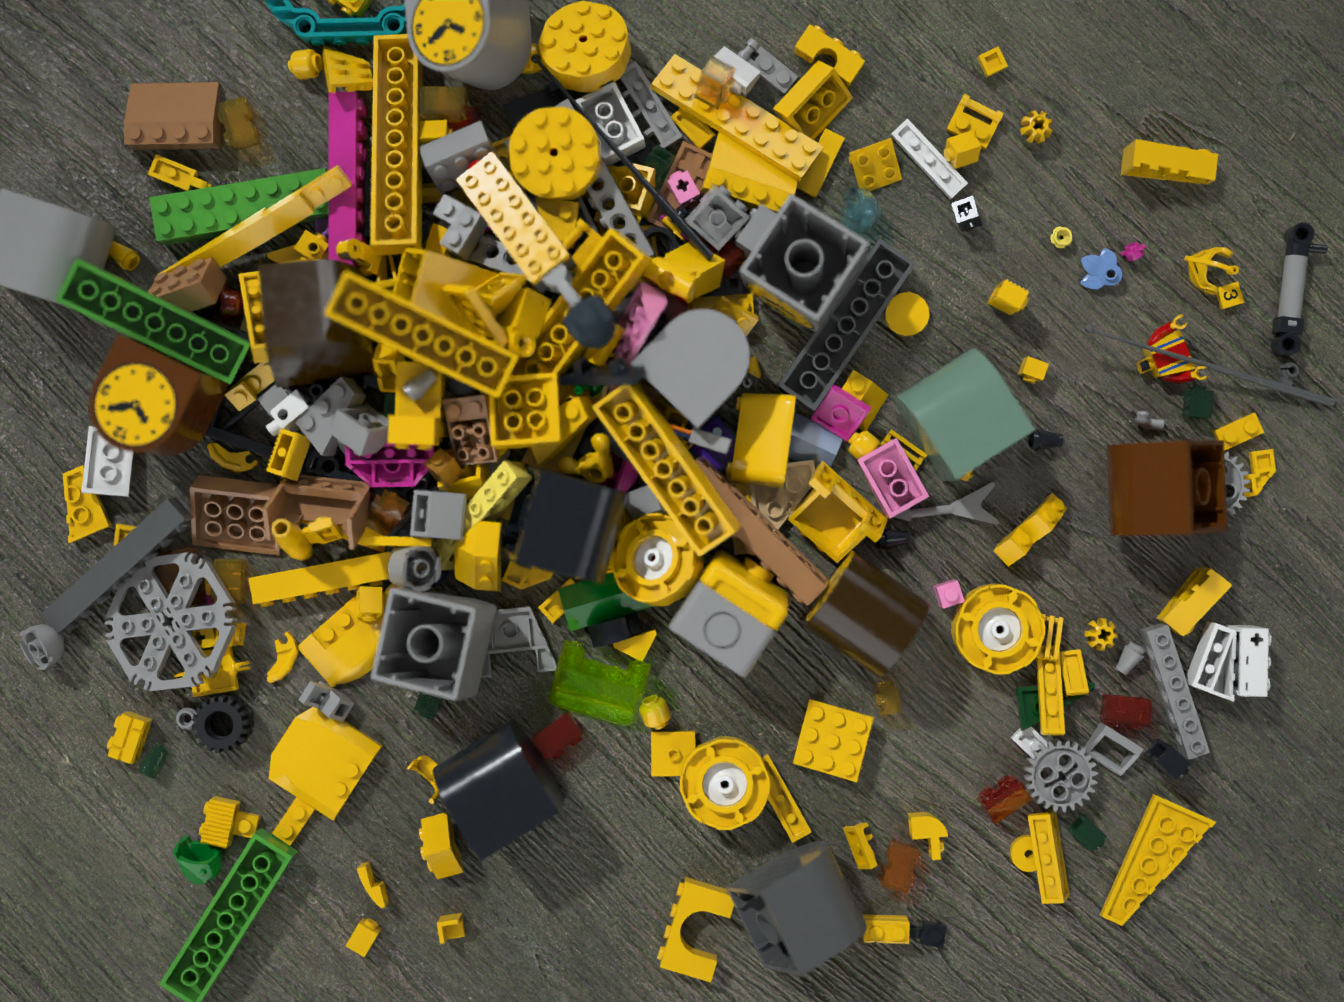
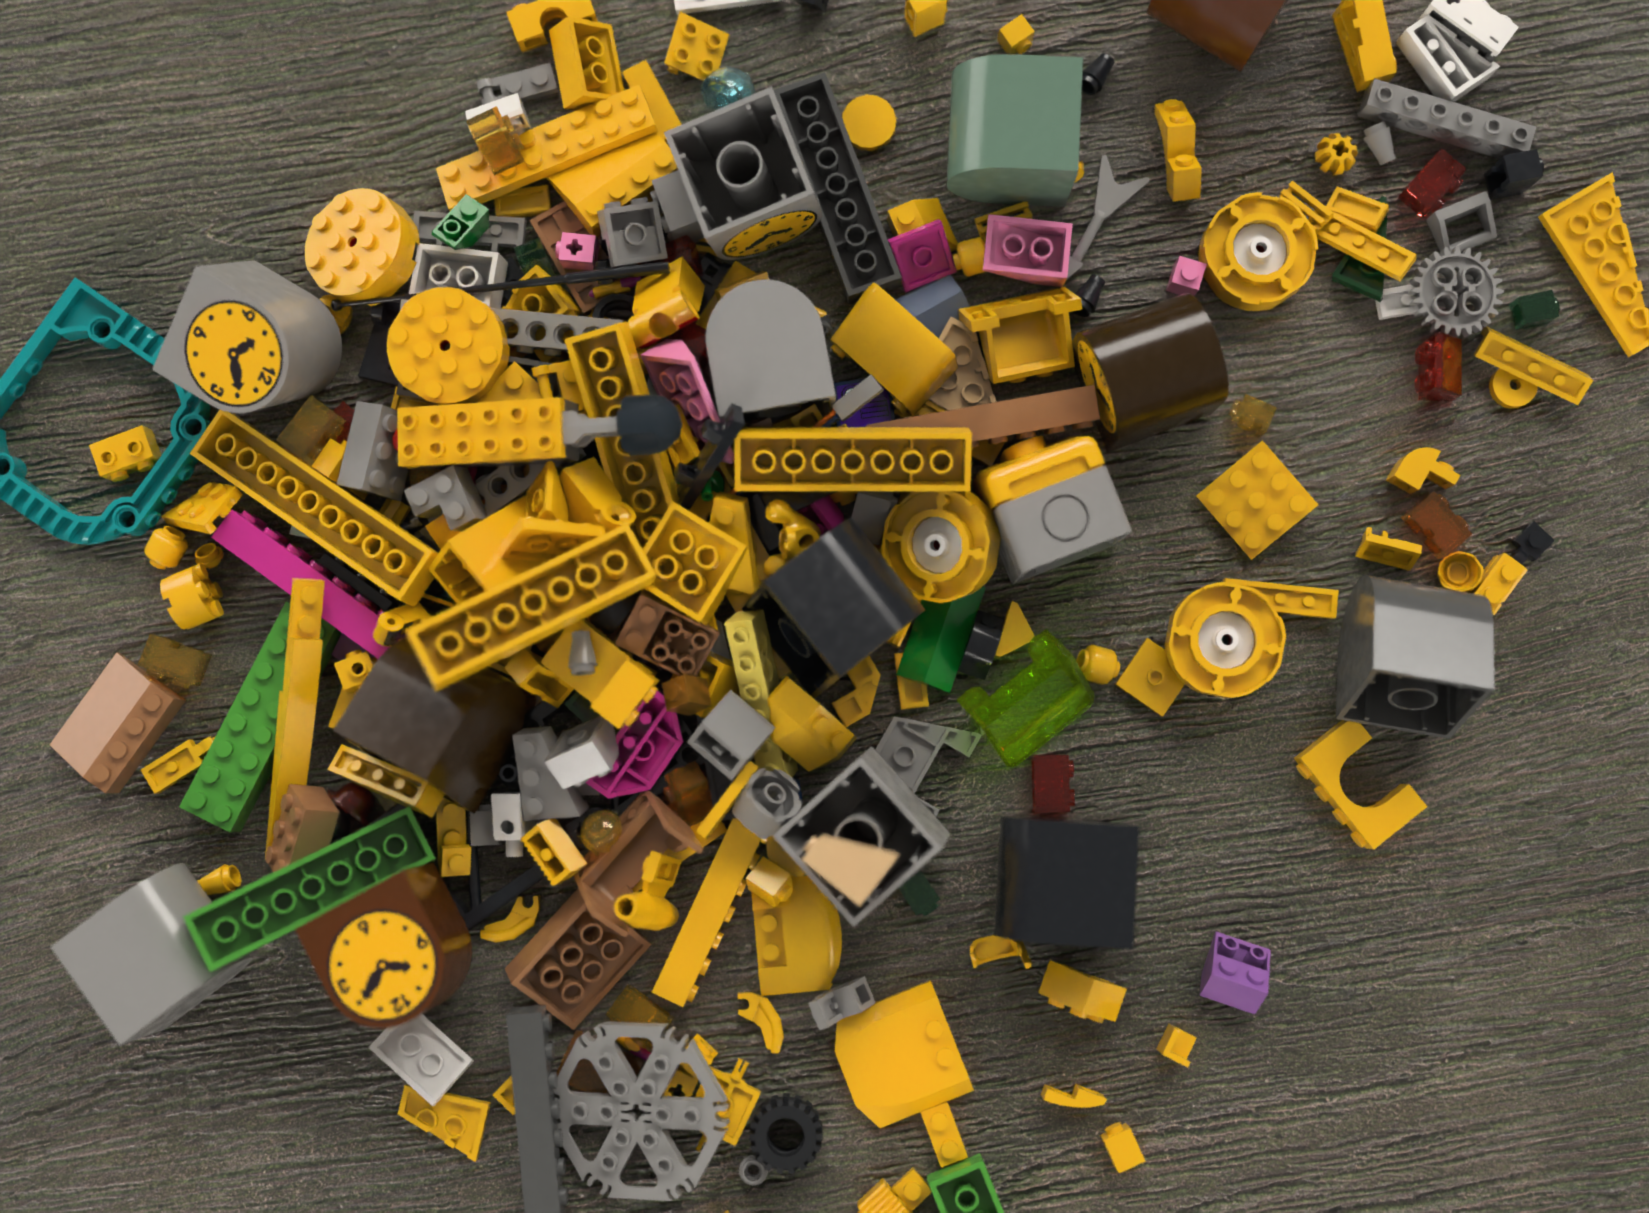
camera: 50 degrees left, 5 degrees down
(285, 105) = (192, 597): none -> yellow brick
(319, 95) = (209, 555): none -> yellow plate
(322, 475) = (600, 831): none -> clear yellow hair
(405, 649) = (849, 864): none -> tan slope
(522, 933) = (1236, 973): none -> medium lavender slope
(645, 101) = (463, 224): none -> green slope
(878, 901) = (1460, 572): none -> yellow hair

